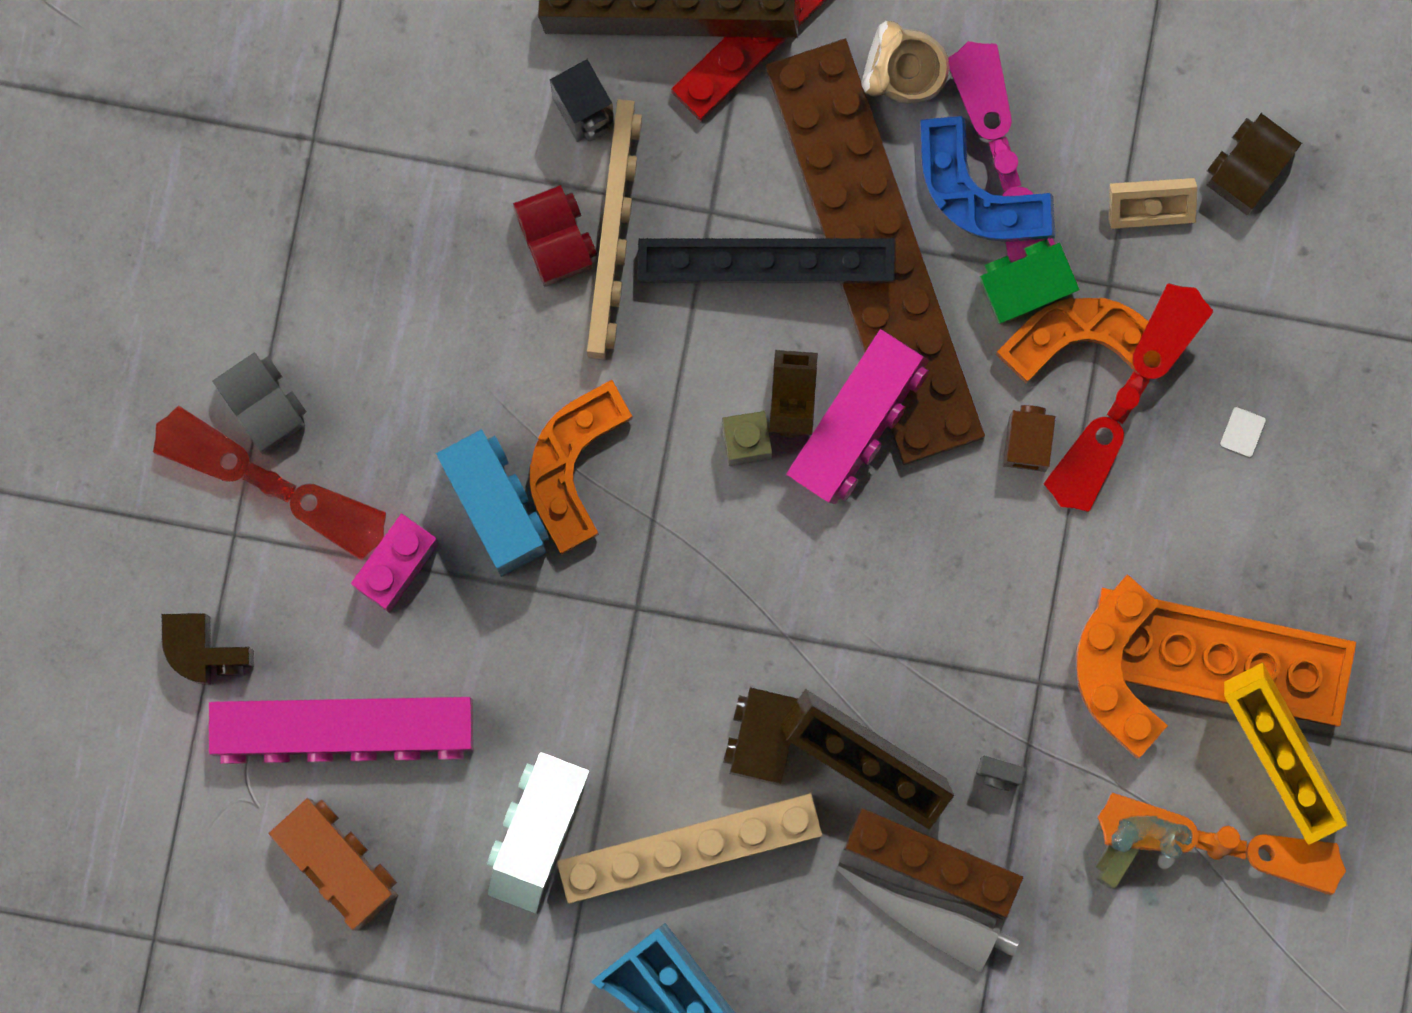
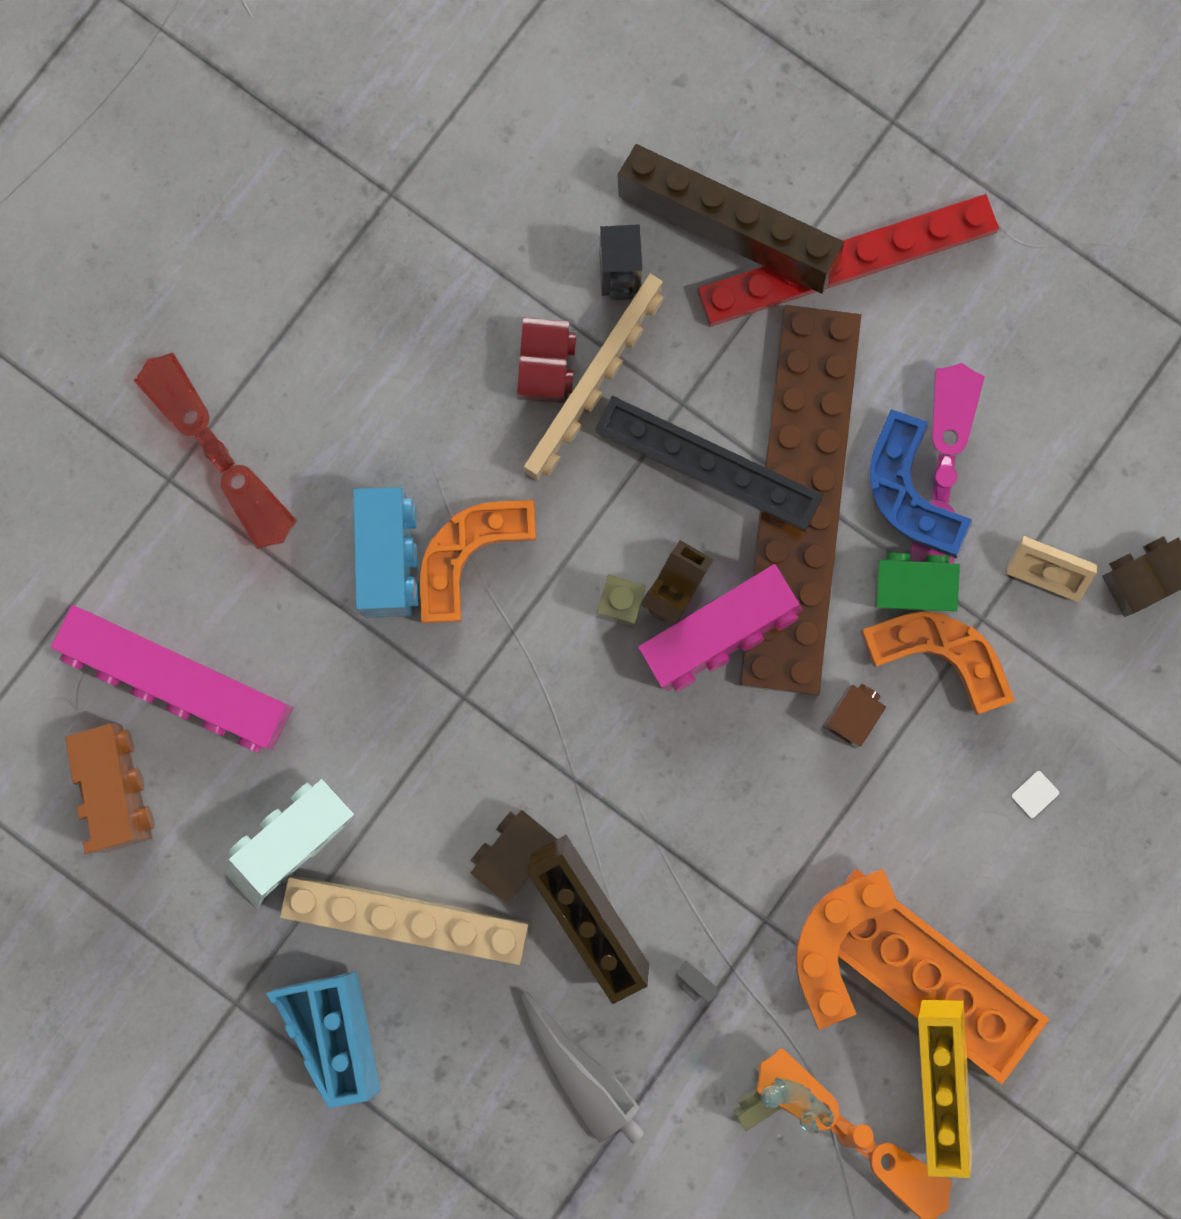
camera: 25 degrees right, 0 degrees up
(189, 650) = (81, 556): dark brown brick -> none
(259, 401) = (239, 381): dark grey brick -> none
(395, 563) = (282, 564): dark pink brick -> none
(905, 54) = (900, 349): tan piece -> none
(933, 863) = (603, 1032): reddish brown brick -> none
(1169, 331) = (1015, 682): red piece -> none

